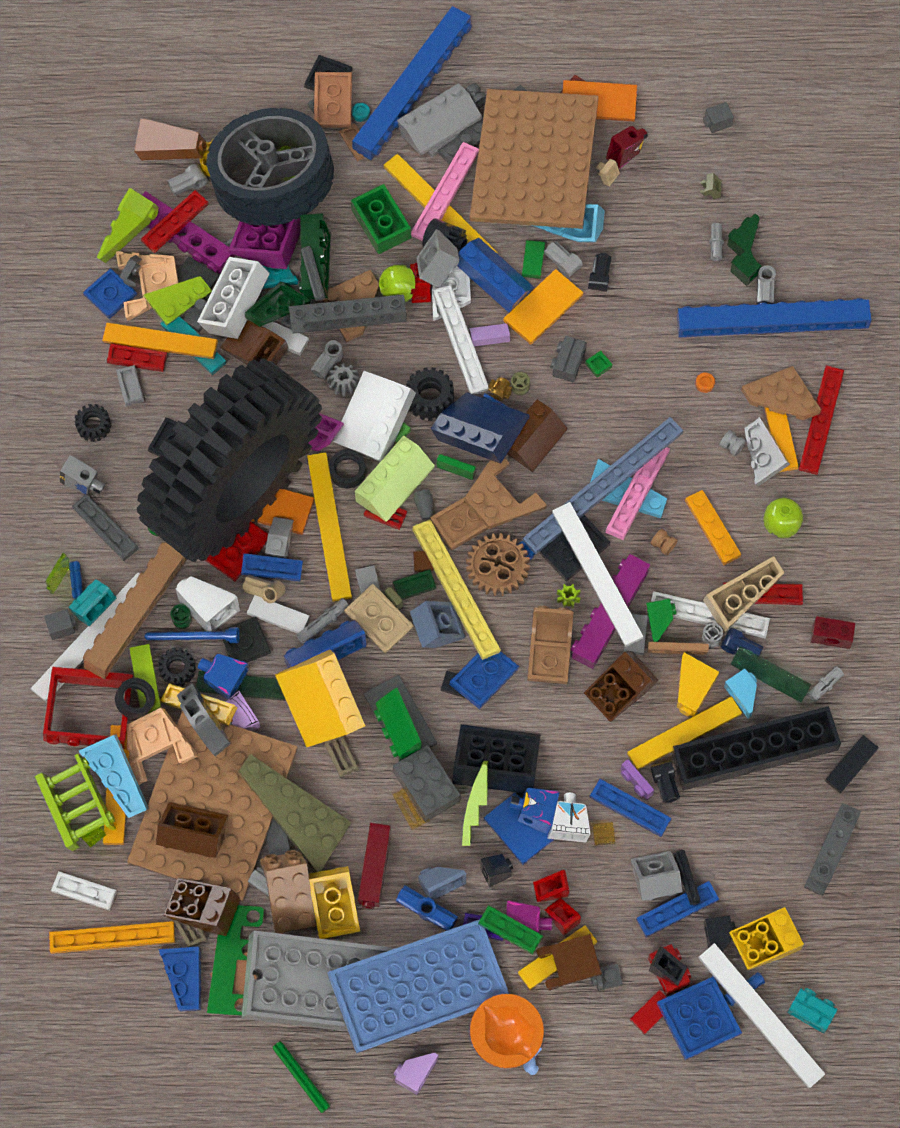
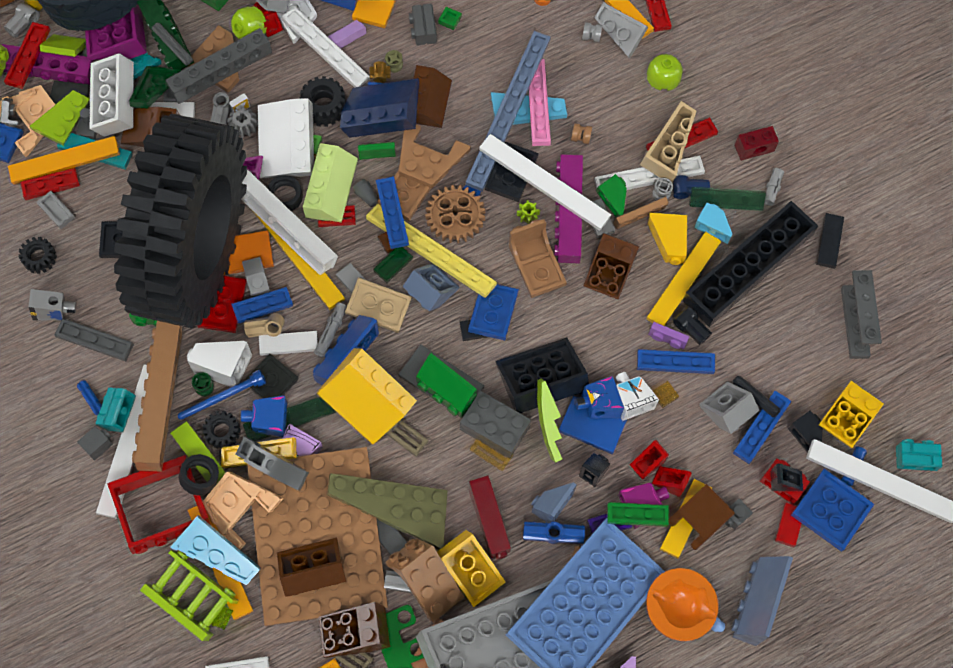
camera: 30 degrees left, 0 degrees up
(57, 573) = (70, 398): clear neon green piece -> none
(213, 225) = (63, 45): none -> lime tile
(332, 501) = (287, 225): none -> white tile
(349, 359) = (239, 102): none -> white tile
(394, 598) = (382, 281): olive tile -> none
(436, 535) = (392, 212): none -> blue plate
(581, 1063) = (761, 599): none -> sand blue slope
(713, 527) = (613, 105): light orange plate -> none

